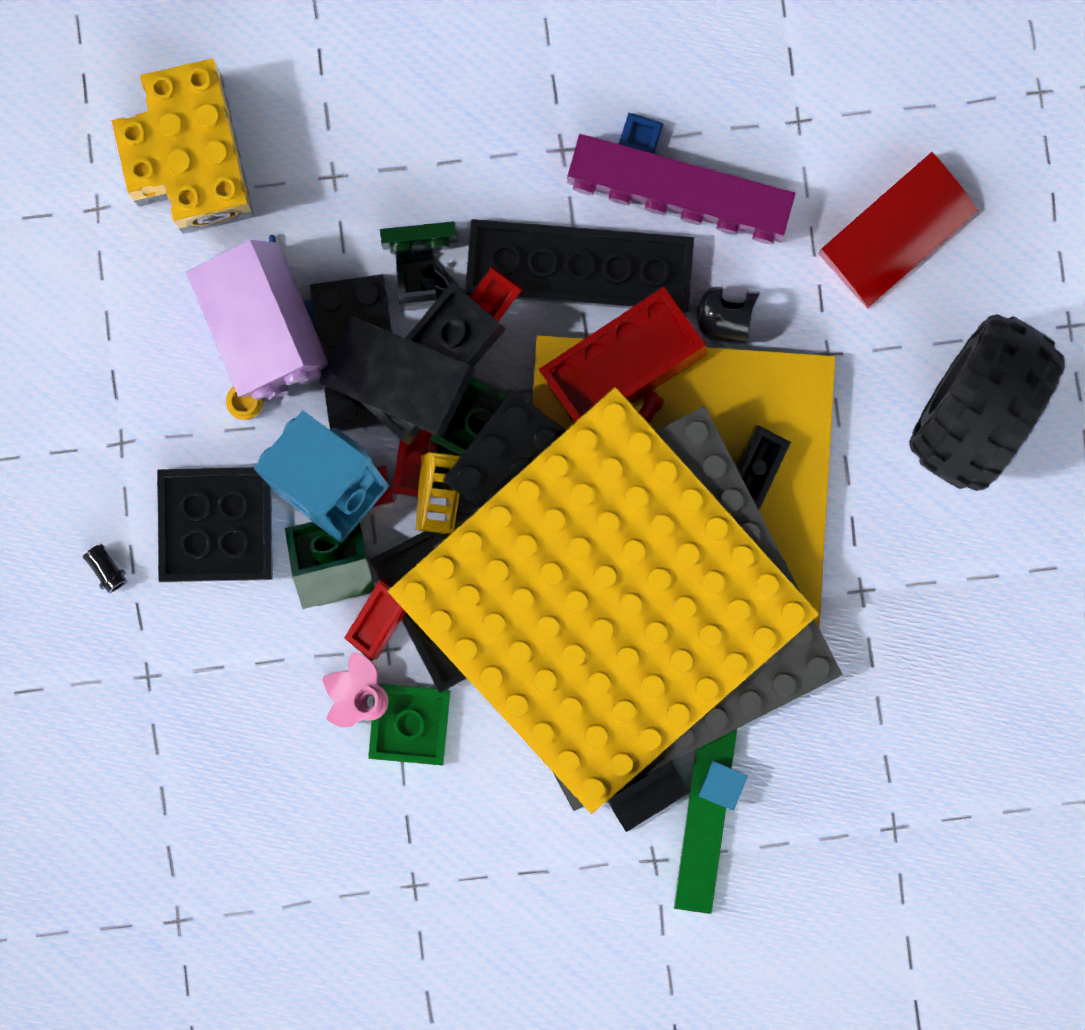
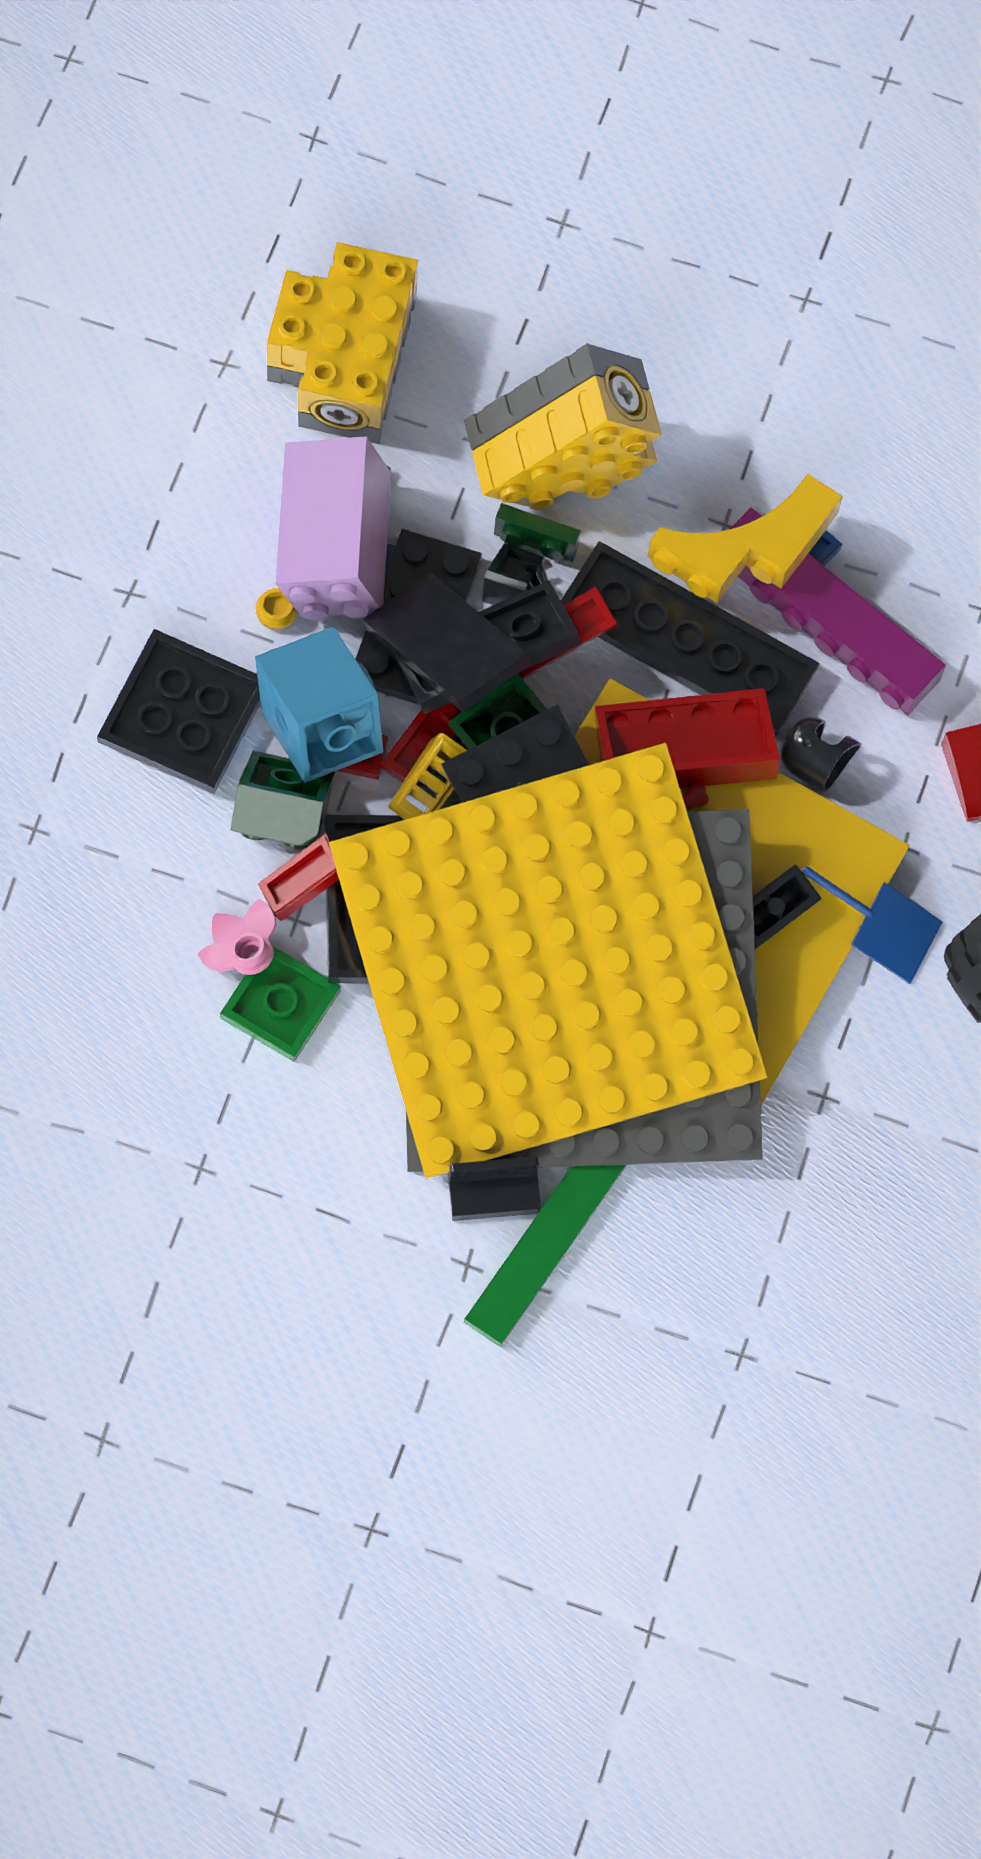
camera: 20 degrees right, 15 degrees down
(105, 569) = (49, 711): black pin -> none
(404, 150) = (567, 430): none -> yellow piece
(612, 165) = (768, 546): none -> yellow arch
(723, 785) = (579, 1215): dark azure tile -> none
(854, 431) = (893, 930): none -> blue piece

